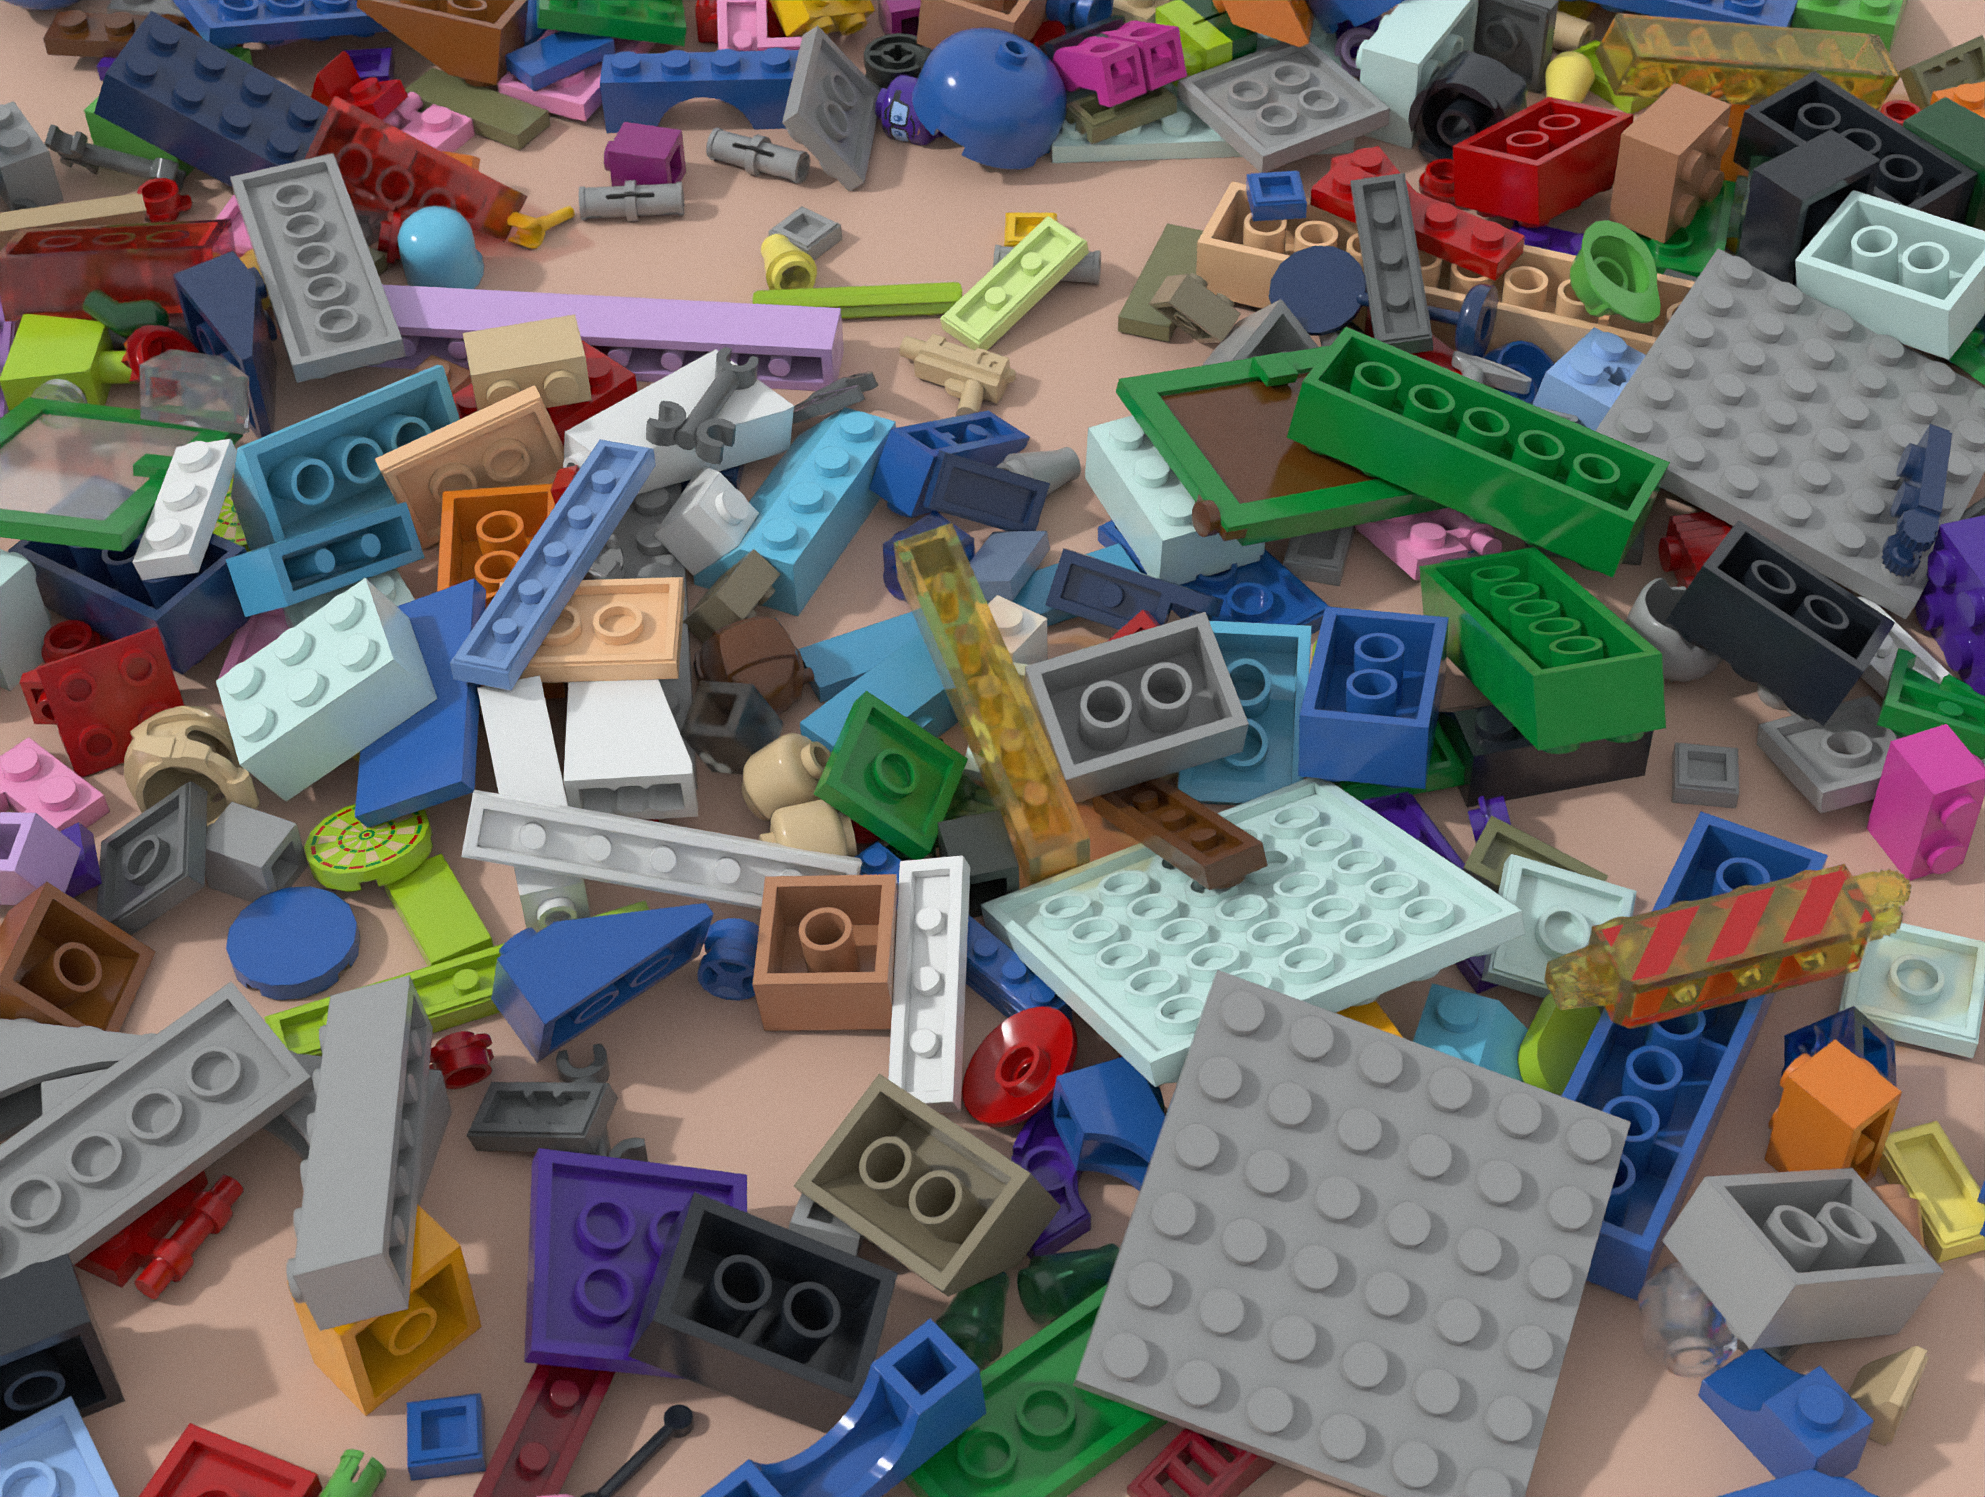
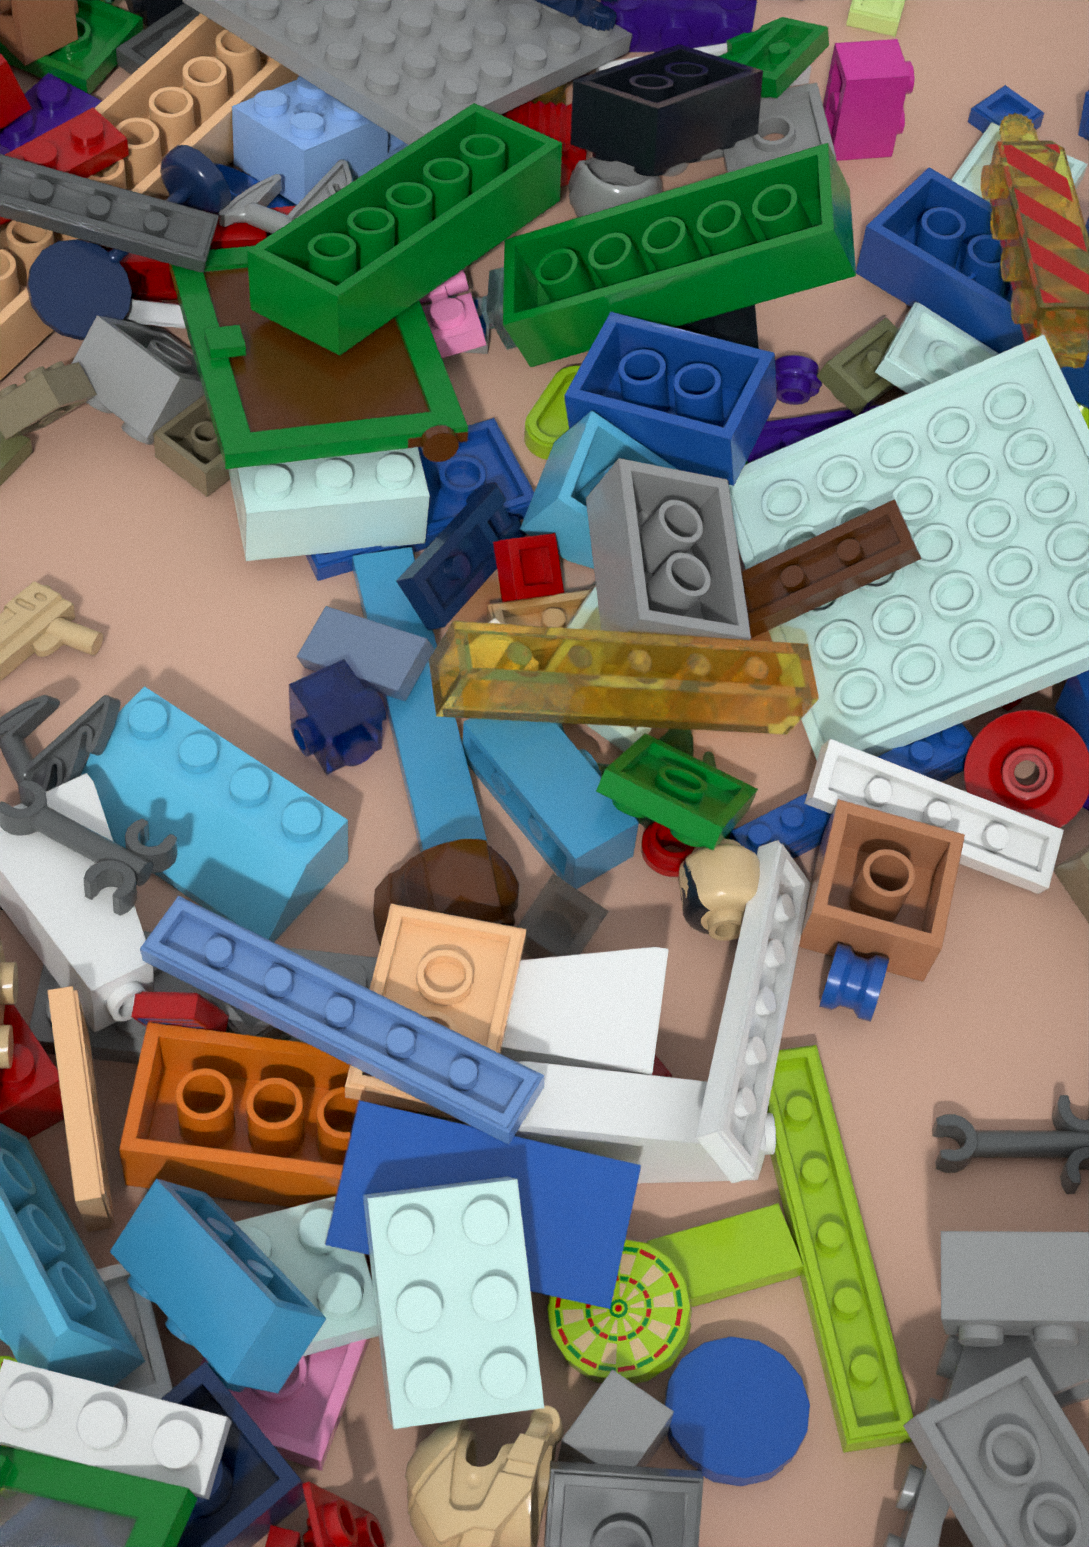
camera: 85 degrees left, 10 degrees up
(462, 1058) = (928, 1243): red plate -> none
(542, 1116) = (1028, 1173): dark grey plate -> none
(589, 967) = (897, 1085): blue slope -> none
(706, 521) = (228, 881): white slope -> none
(733, 596) = (346, 899): dark tan piece -> none
(783, 774) = (637, 888): tan head -> none
(912, 452) = (182, 666): blue slope -> none
(985, 493) = (272, 637): dark blue tile -> none
(988, 852) = (771, 754): pearl dark grey brick -> none
(1048, 466) = (227, 604): light grey cone -> none
(1615, 274) = (201, 66): bright green piece -> none

